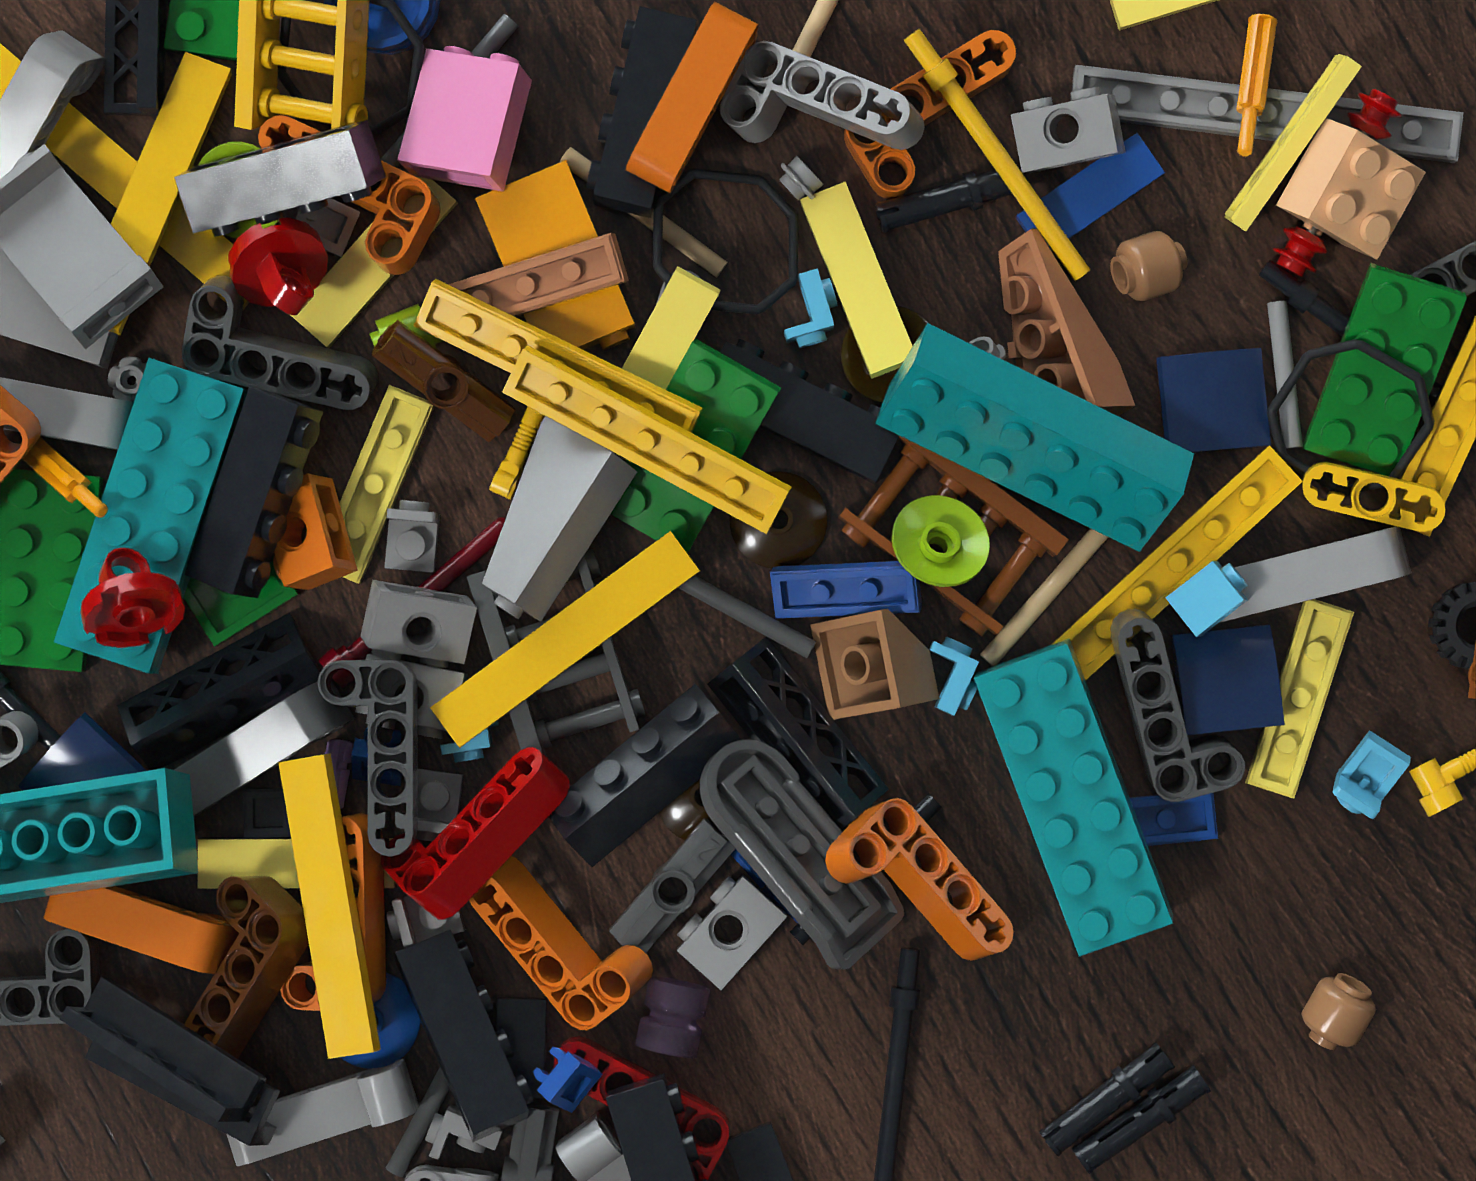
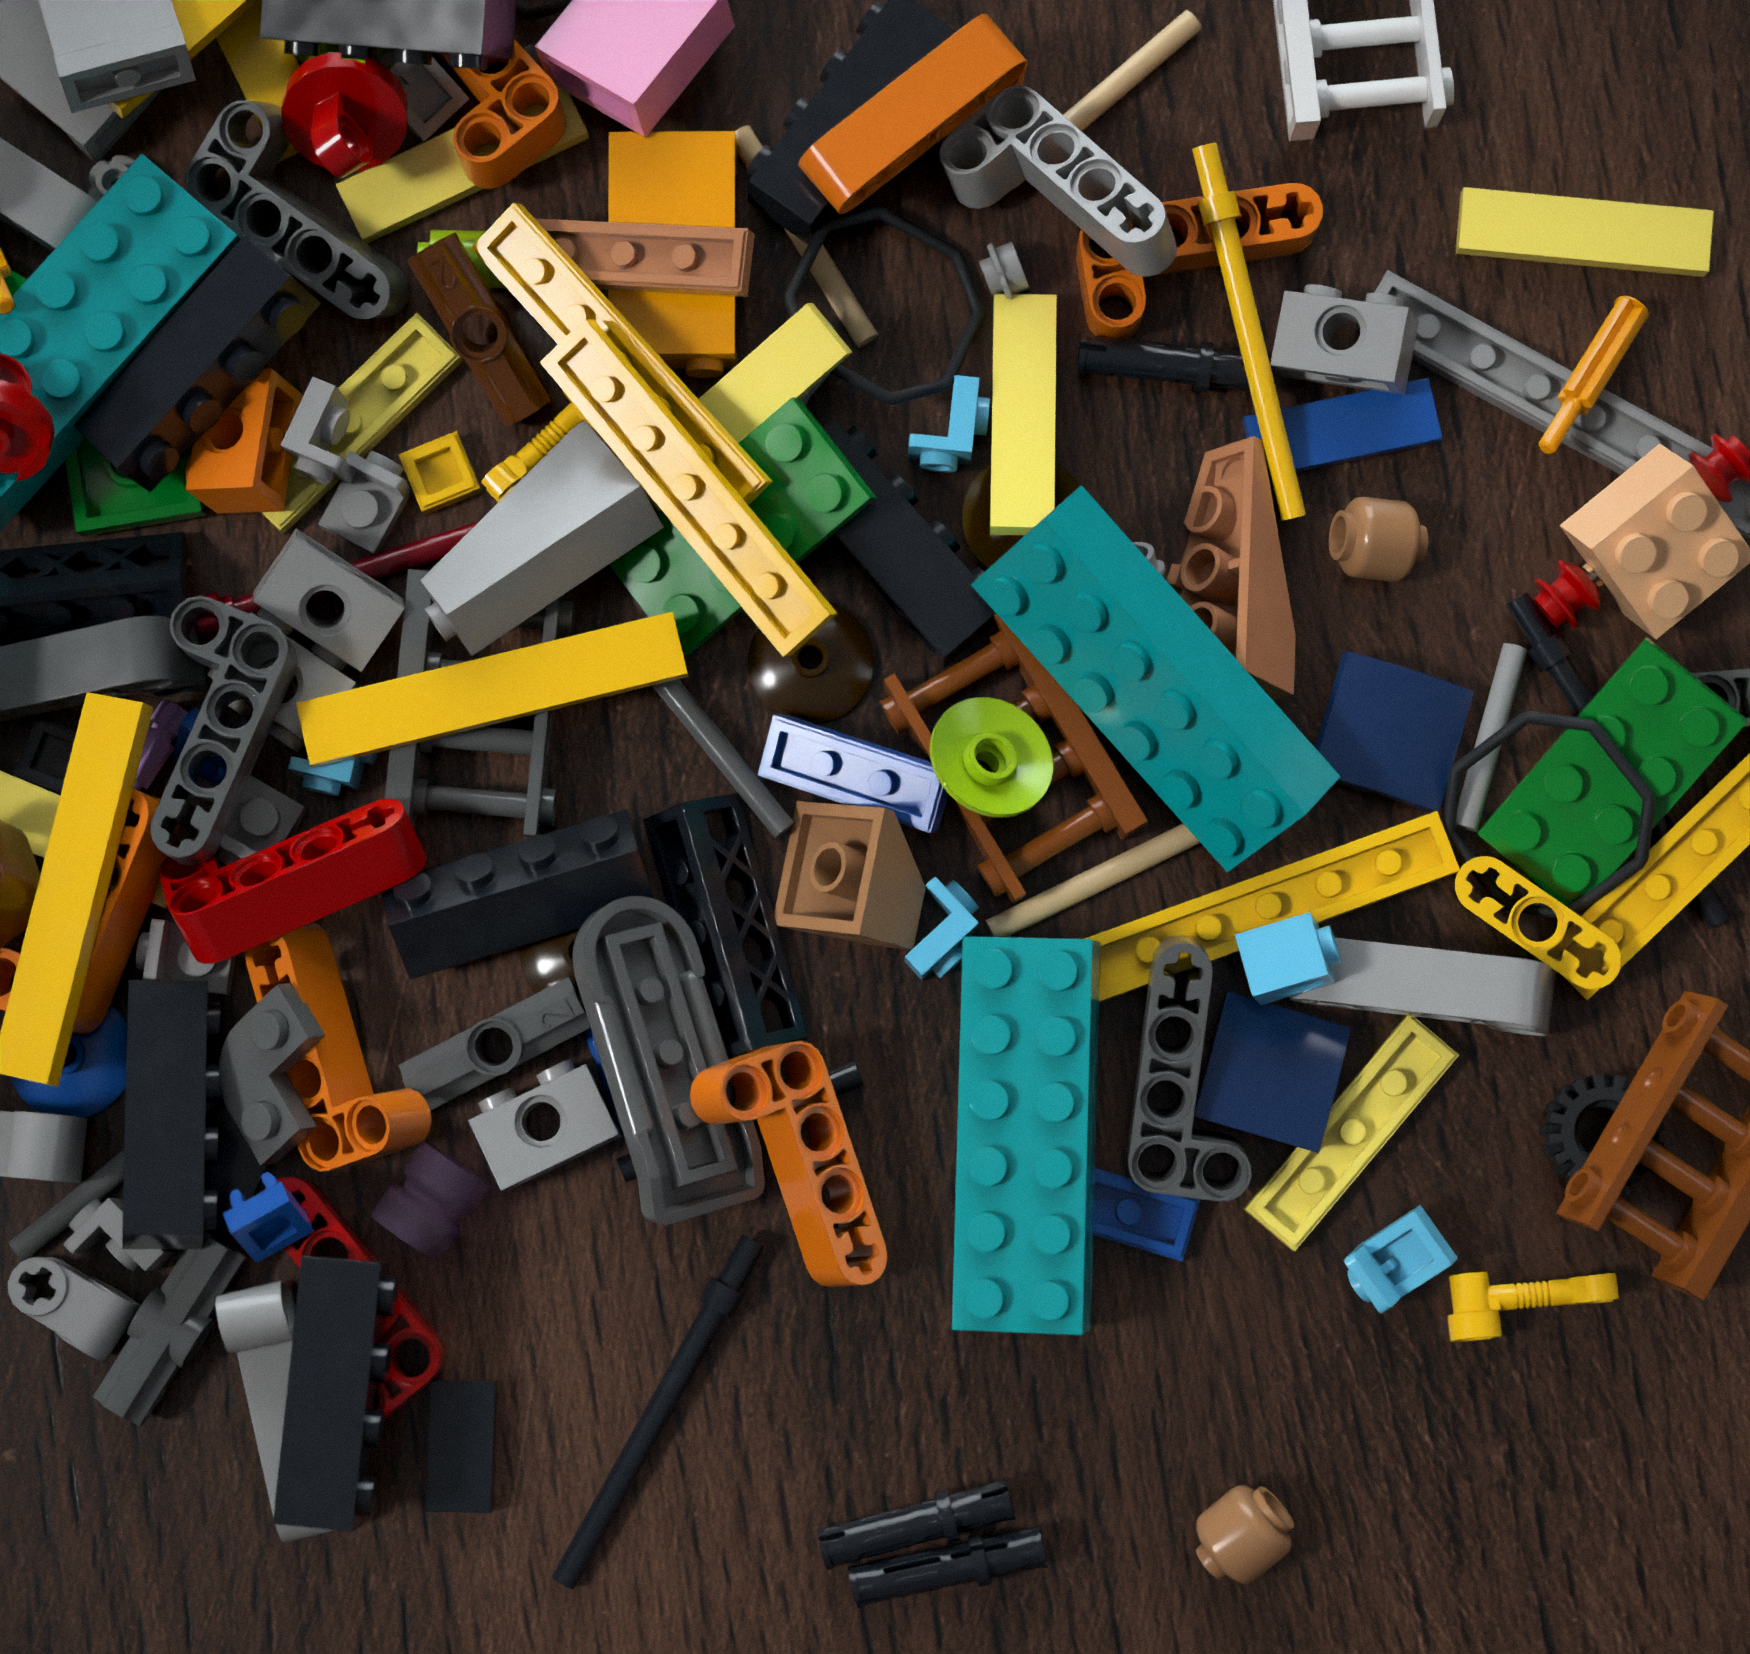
camera: 25 degrees right, 5 degrees down
(356, 497) = (317, 424): none -> light grey bracket
(455, 493) = (440, 473): none -> yellow tile
(511, 980) = (255, 1069): none -> dark grey plate
(1292, 141) = (1610, 459): light yellow tile -> none

